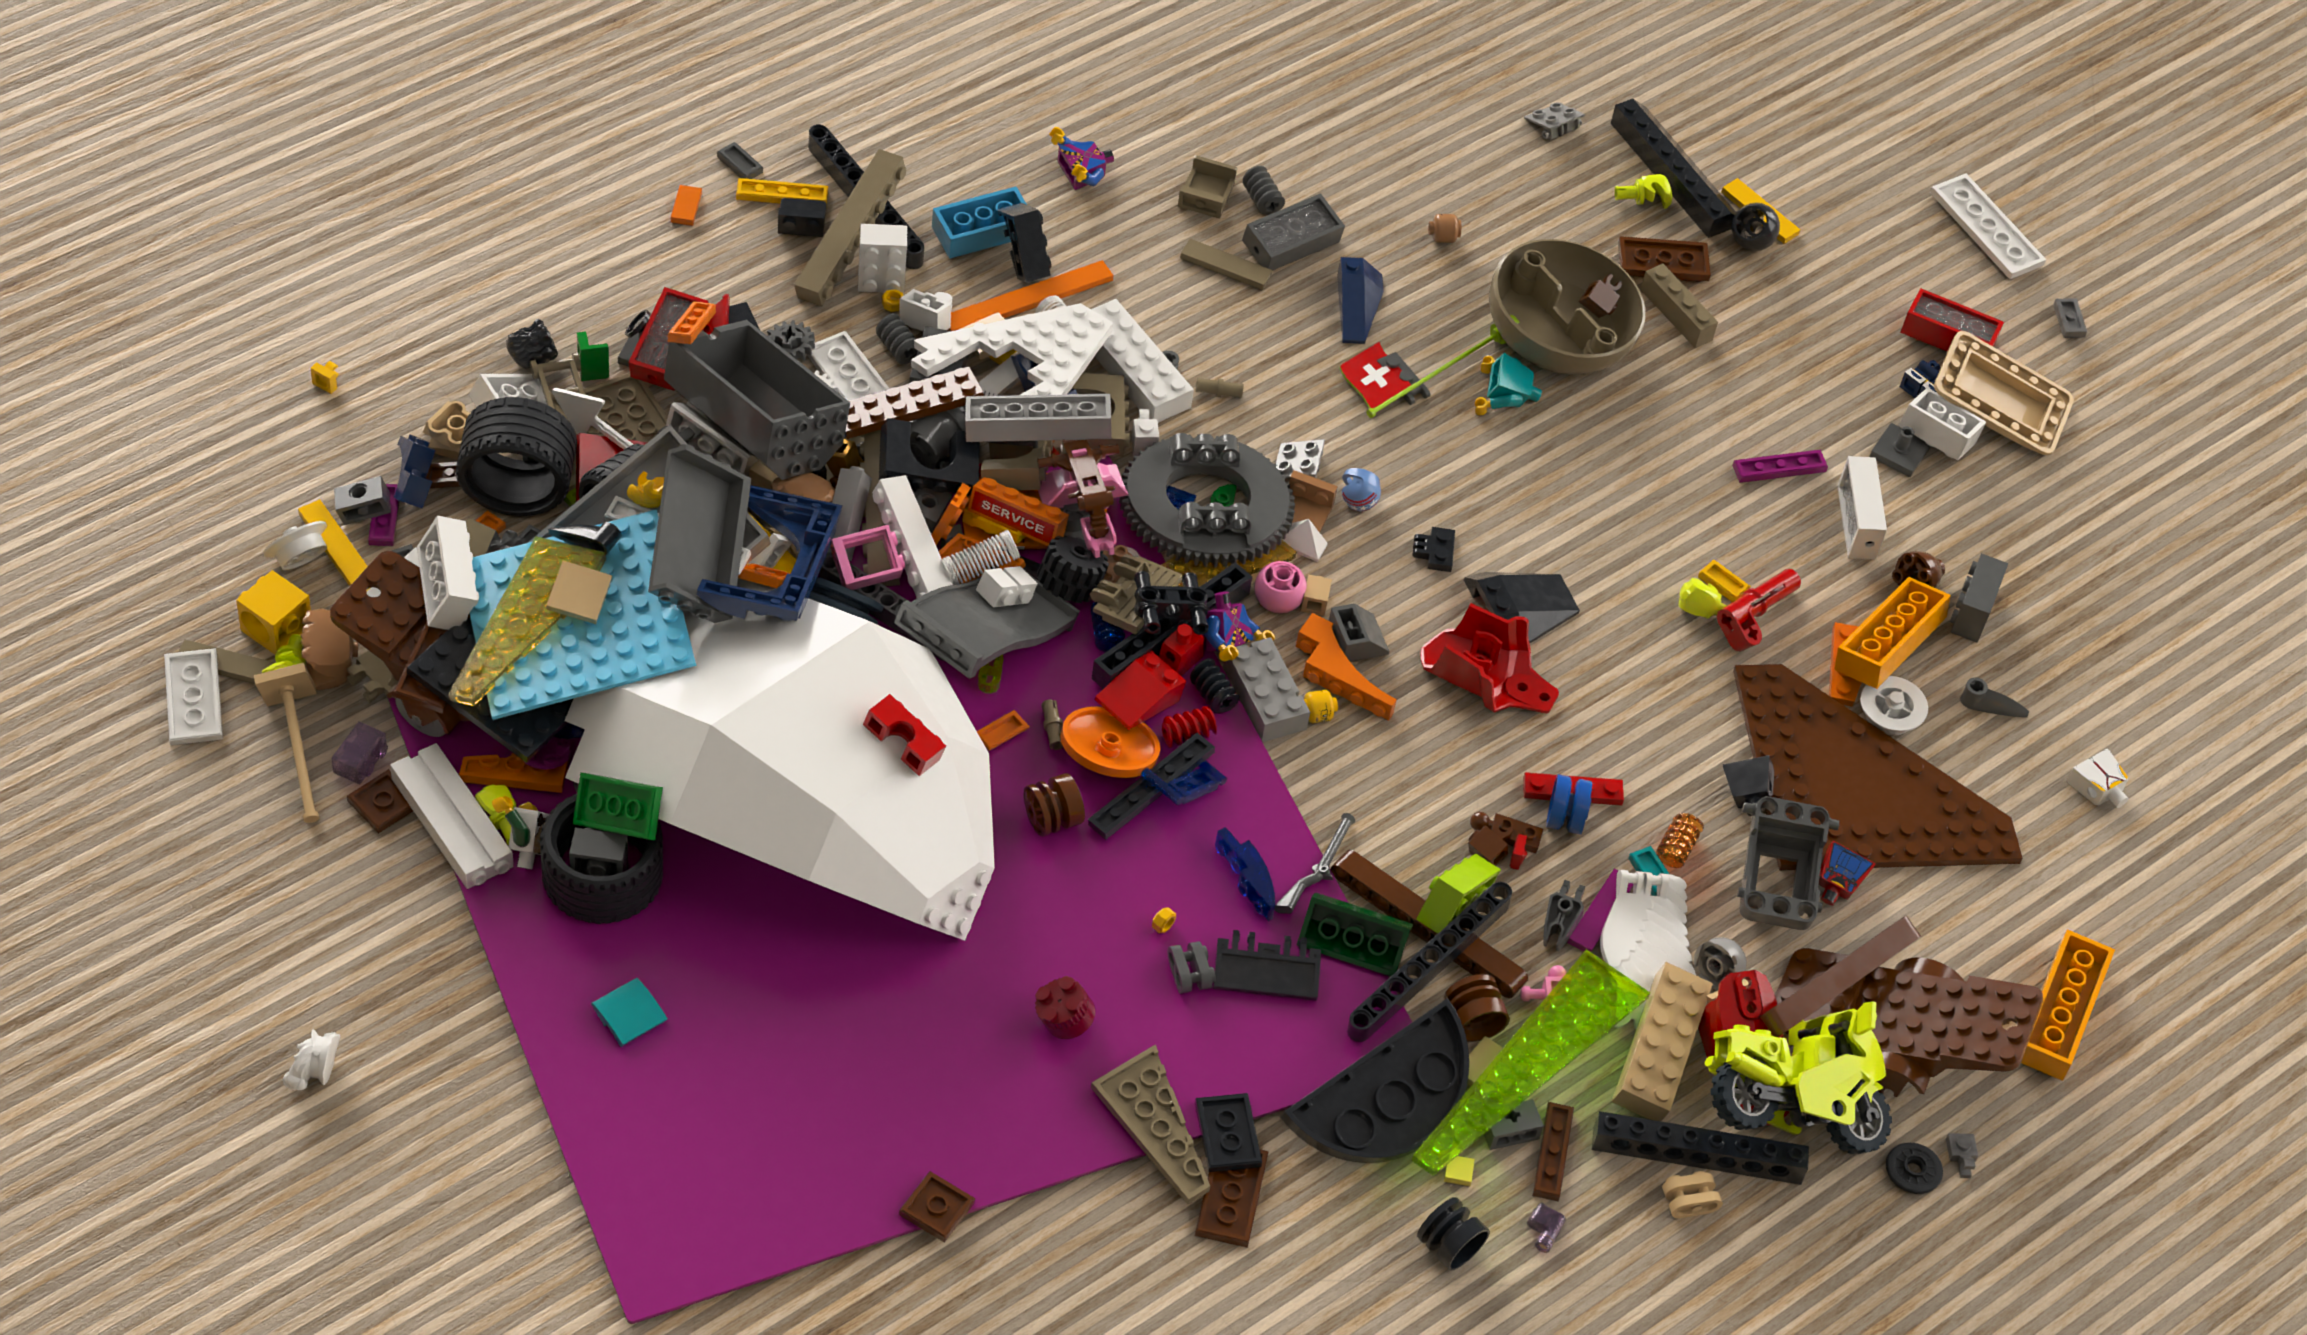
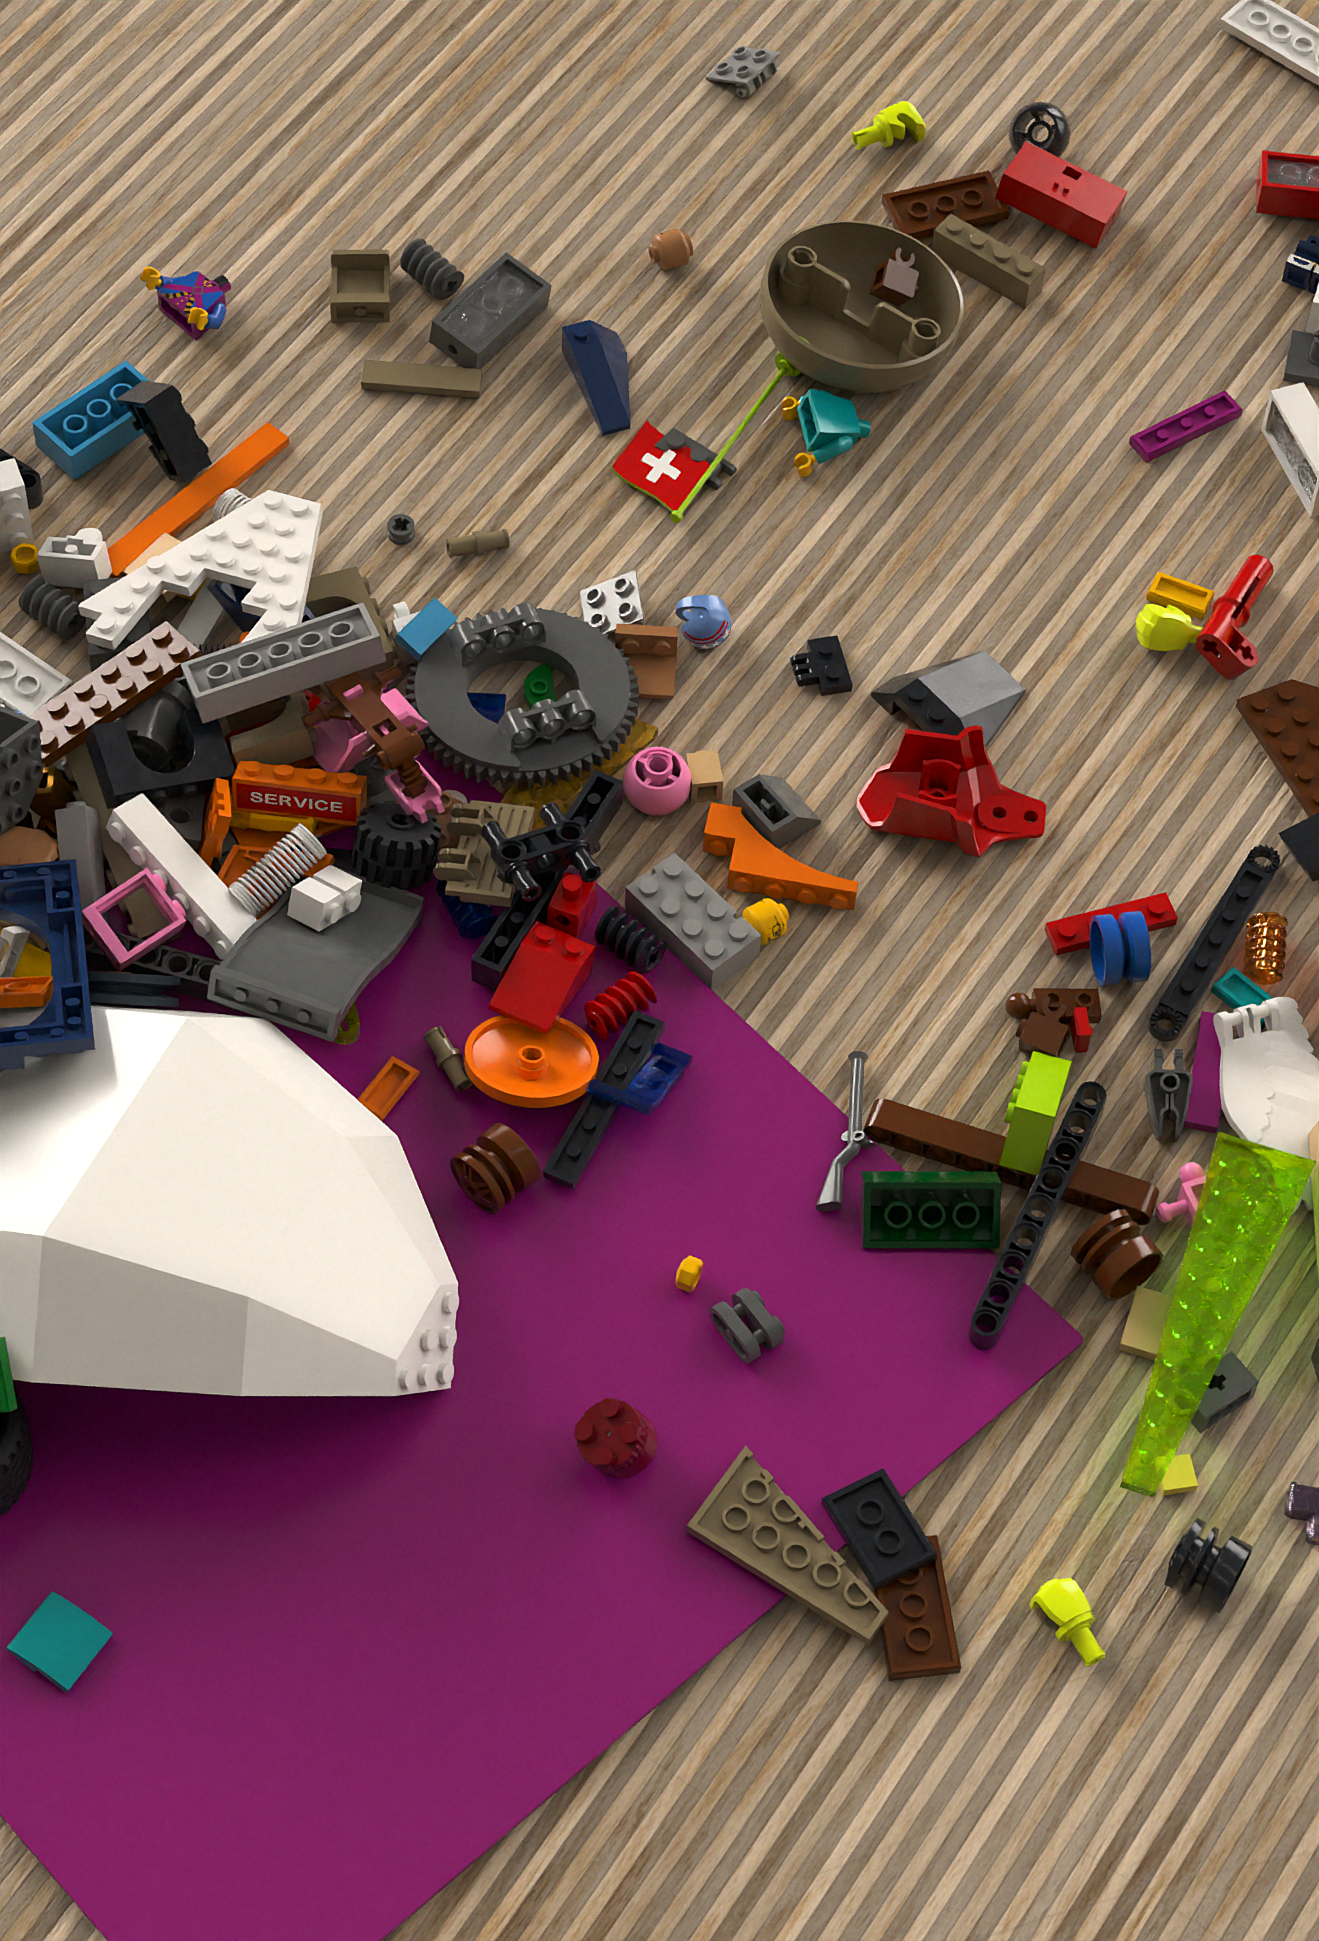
camera: 15 degrees left, 5 degrees up
(892, 718) = (273, 1141): red arch -> none
(937, 1206) = (556, 1764): reddish brown tile -> none
(1146, 370) = (389, 556): white brick -> none
(1154, 431) = (425, 628): none -> dark azure tile
(1230, 628) = (622, 857): torso -> none
(1254, 876) = (779, 1177): clear blue slope -> none
(1267, 970) = (841, 1295): black hinge -> none
(1306, 540) = (662, 708): white slope -> none
(1342, 1233) = (1070, 1609): none -> neon yellow piece
(1391, 1095) = (1062, 1407): black plate -> none
(1553, 1151) = (1278, 1408): reddish brown tile -> none
(1643, 825) = (1214, 943): none -> black plate
(1666, 157) = (899, 80): black slope -> none
(1742, 195) = (1010, 100): yellow tile -> none
(1753, 275) = (1060, 194): none -> red brick

